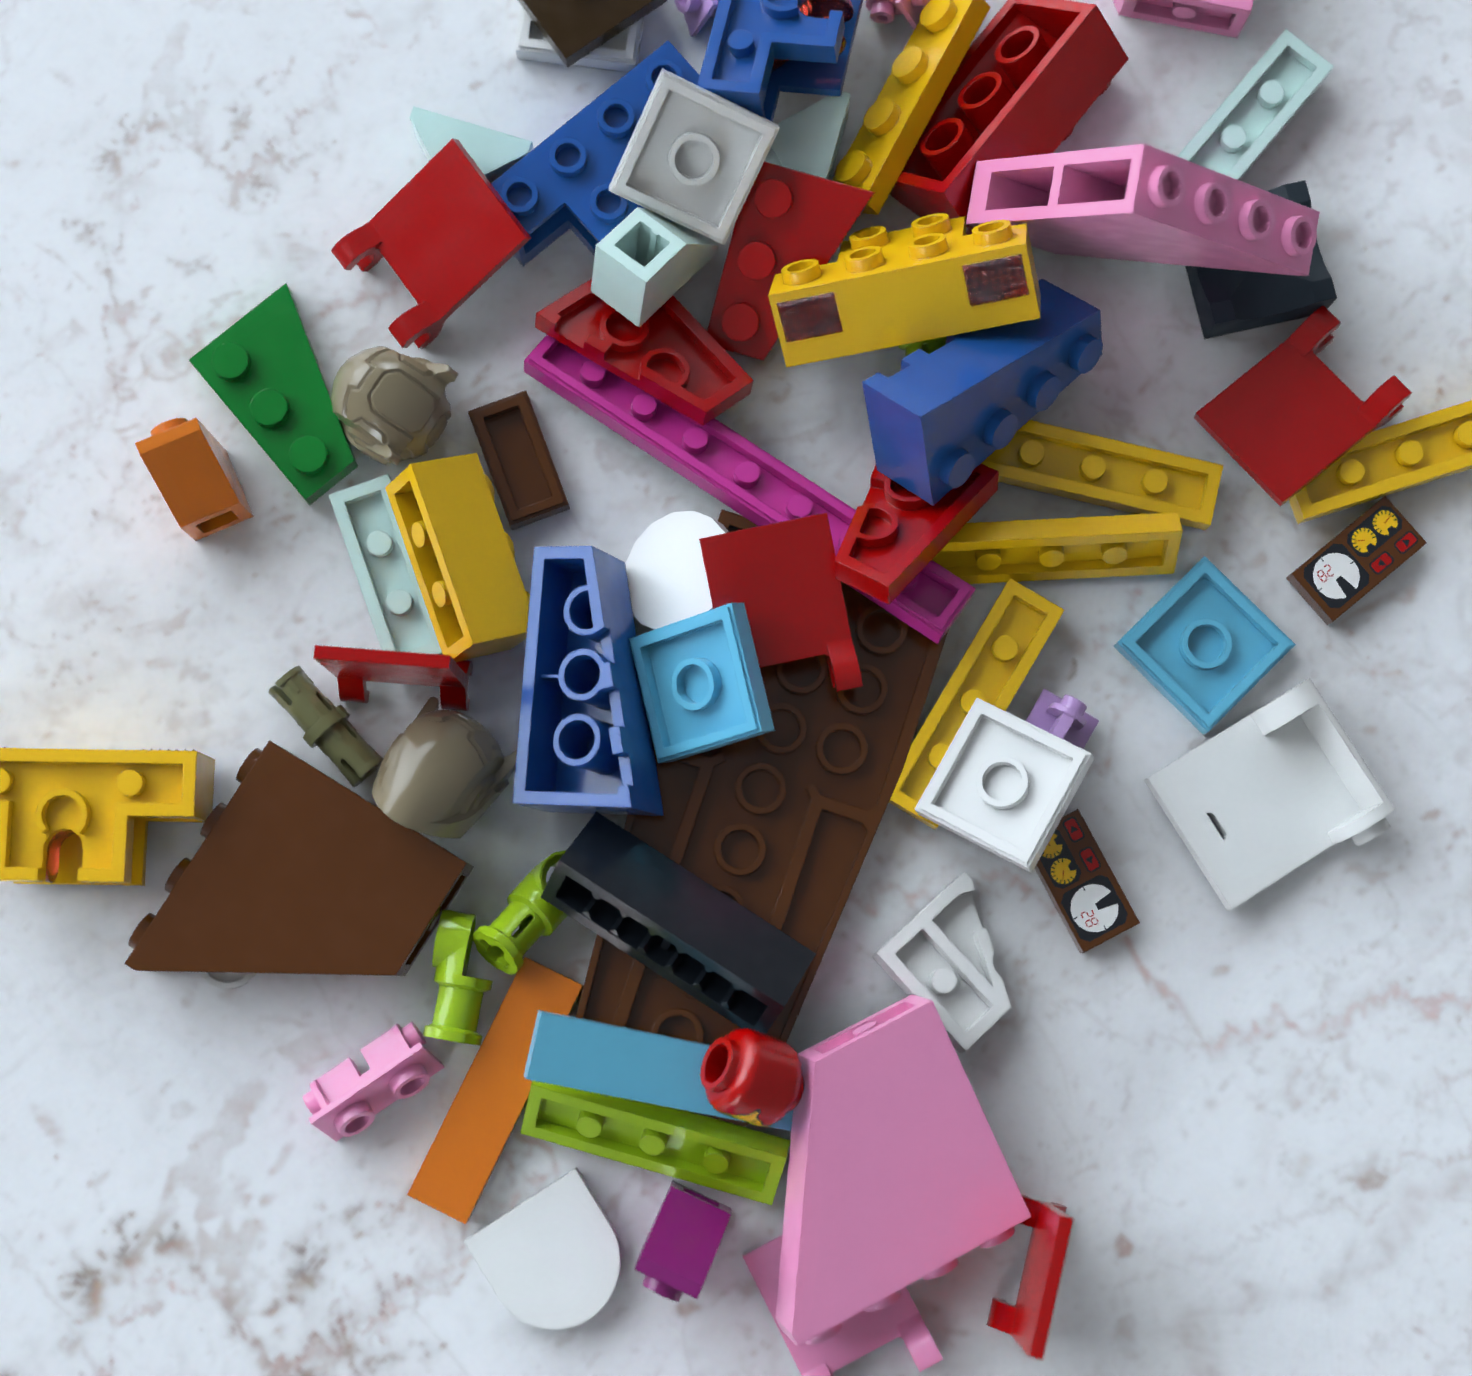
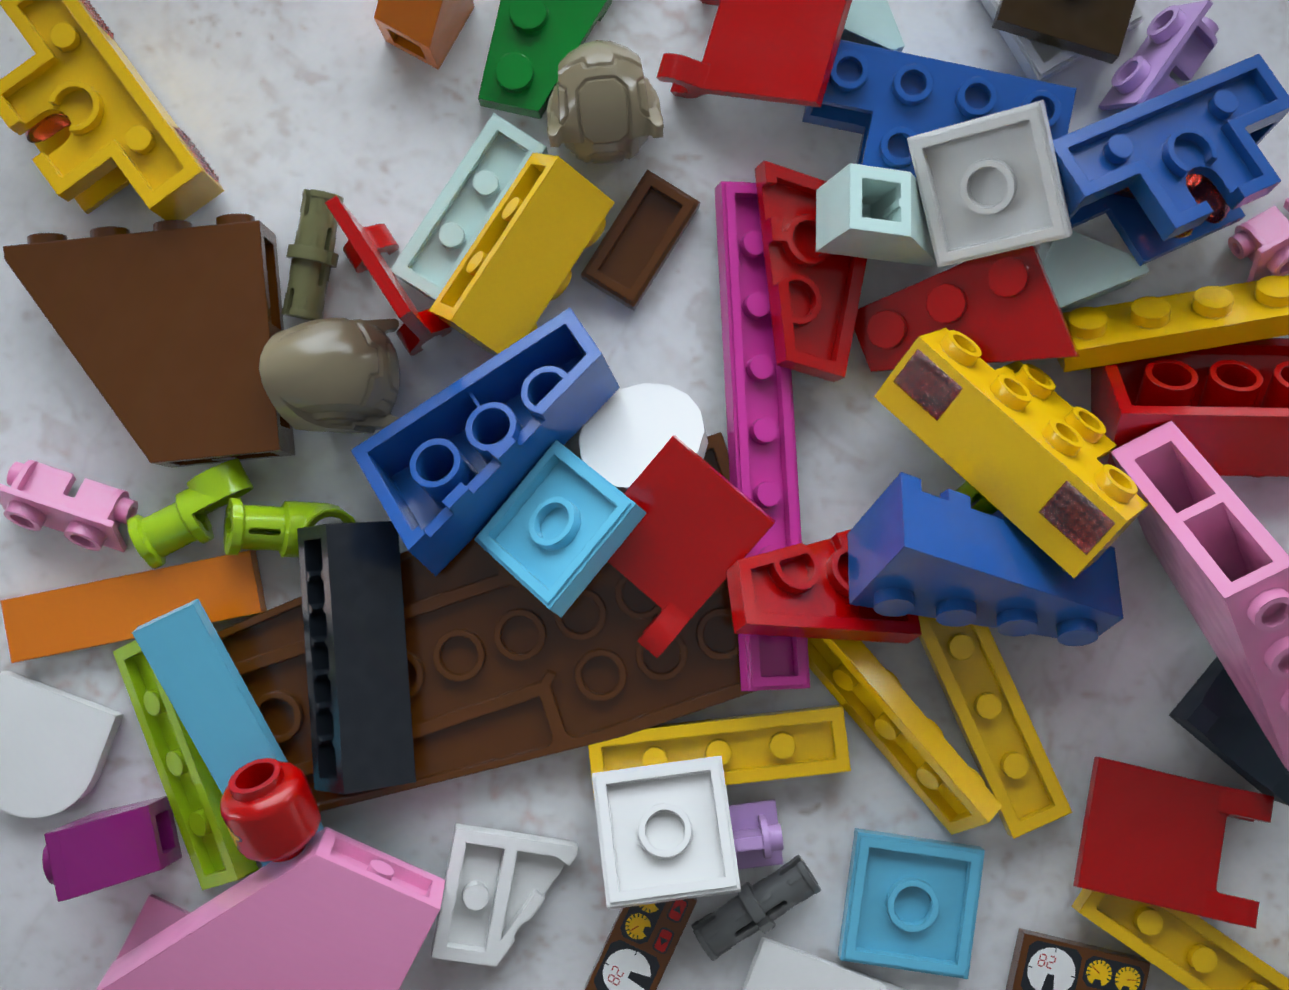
camera: 60 degrees right, 5 degrees up
(1117, 766) = (755, 908): none -> dark grey pin

